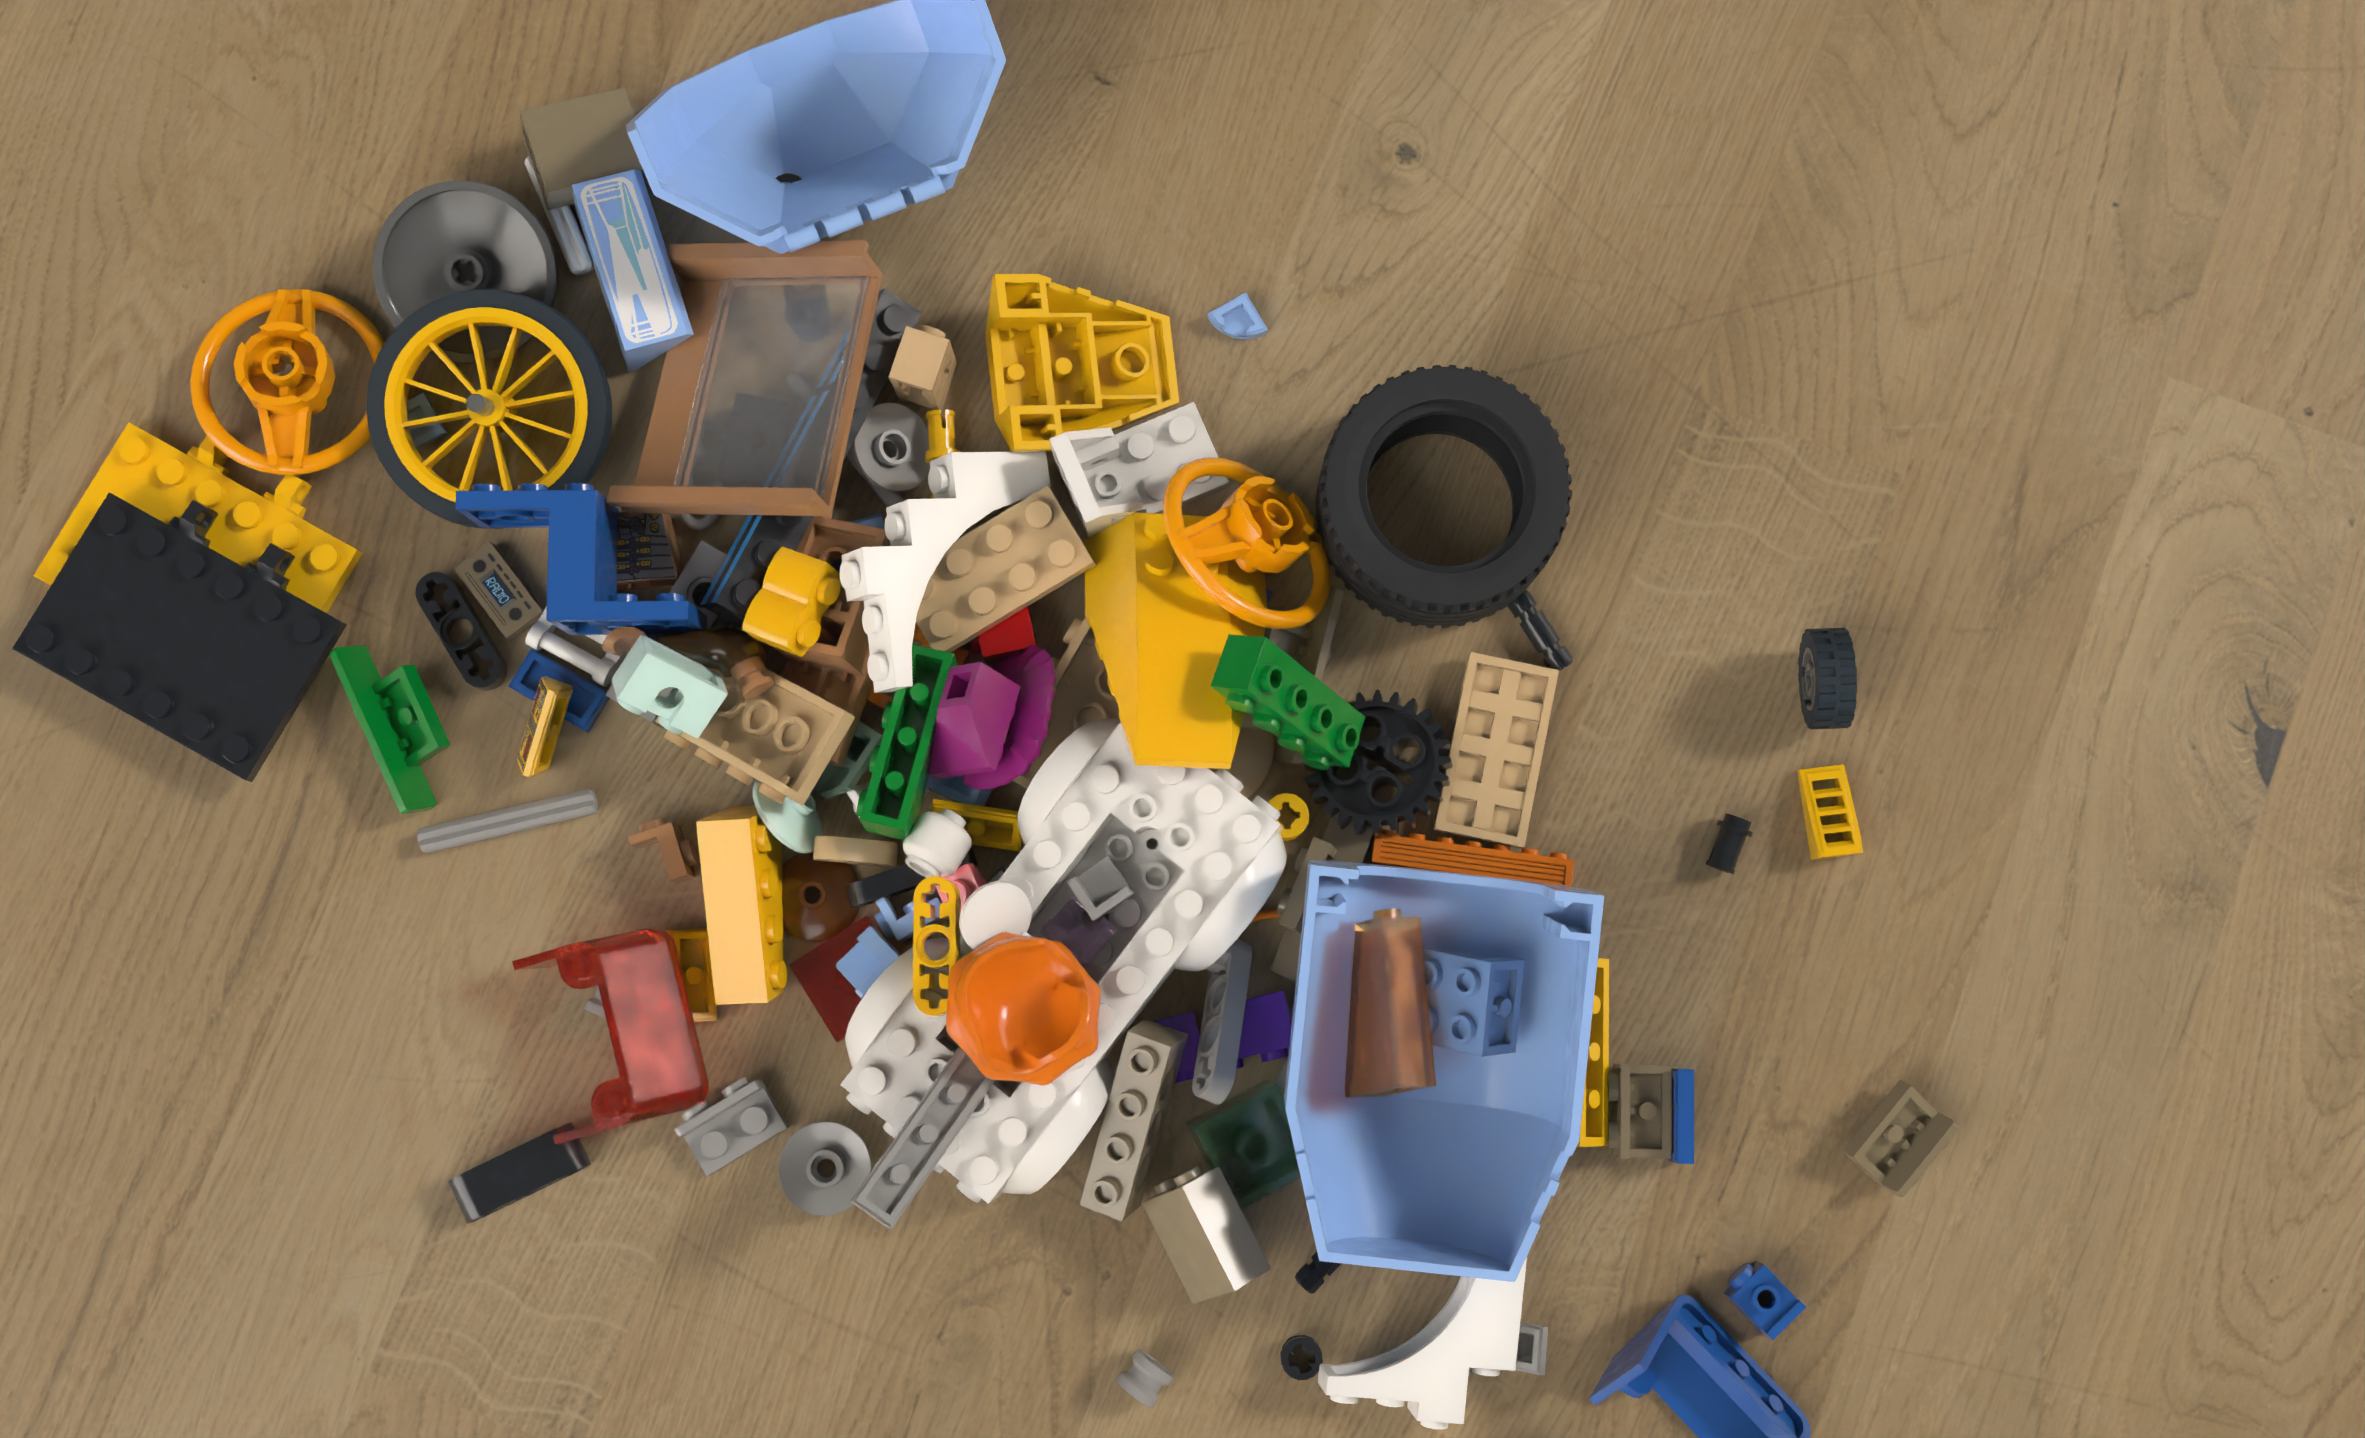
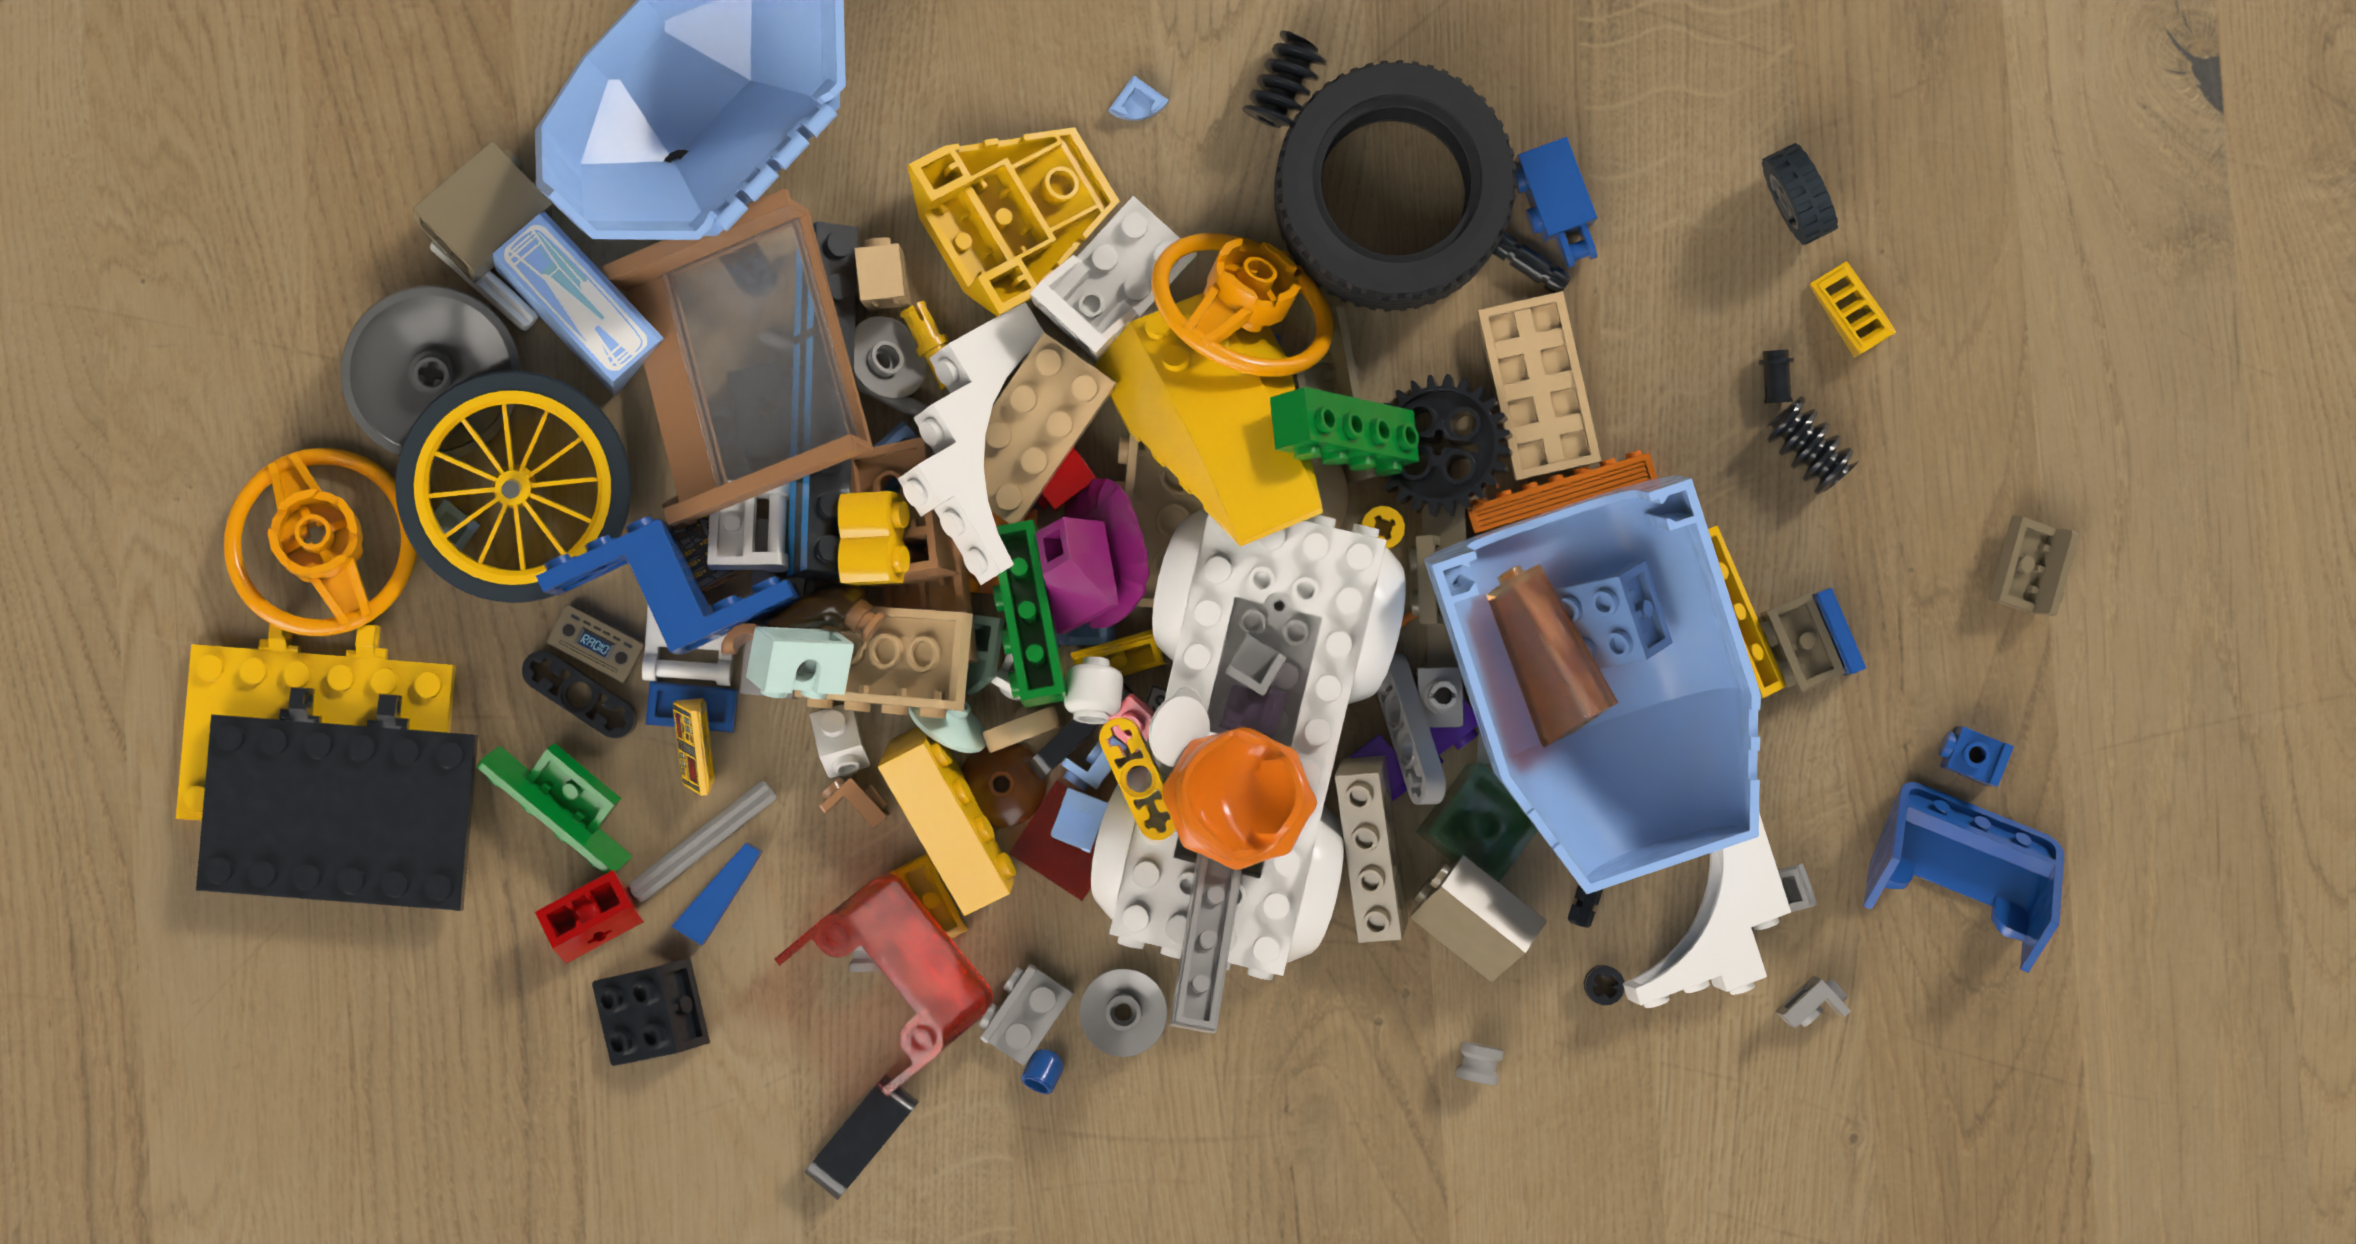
camera: 30 degrees left, 5 degrees up
(363, 842) = (589, 917): none -> red brick
(381, 961) = (651, 1012): none -> black bracket
(484, 885) = (708, 908): none -> blue piece
(671, 540) = (734, 530): none -> white plate
(679, 785) = (839, 741): none -> white bracket
(723, 1190) = (1043, 1071): none -> blue piece
(1268, 1002) = (1441, 696): none -> light grey bracket
(1383, 356) = (1284, 80): none -> black piece
(1592, 580) = (1557, 198): none -> blue brick
(1733, 924) = (1810, 445): none -> black piece

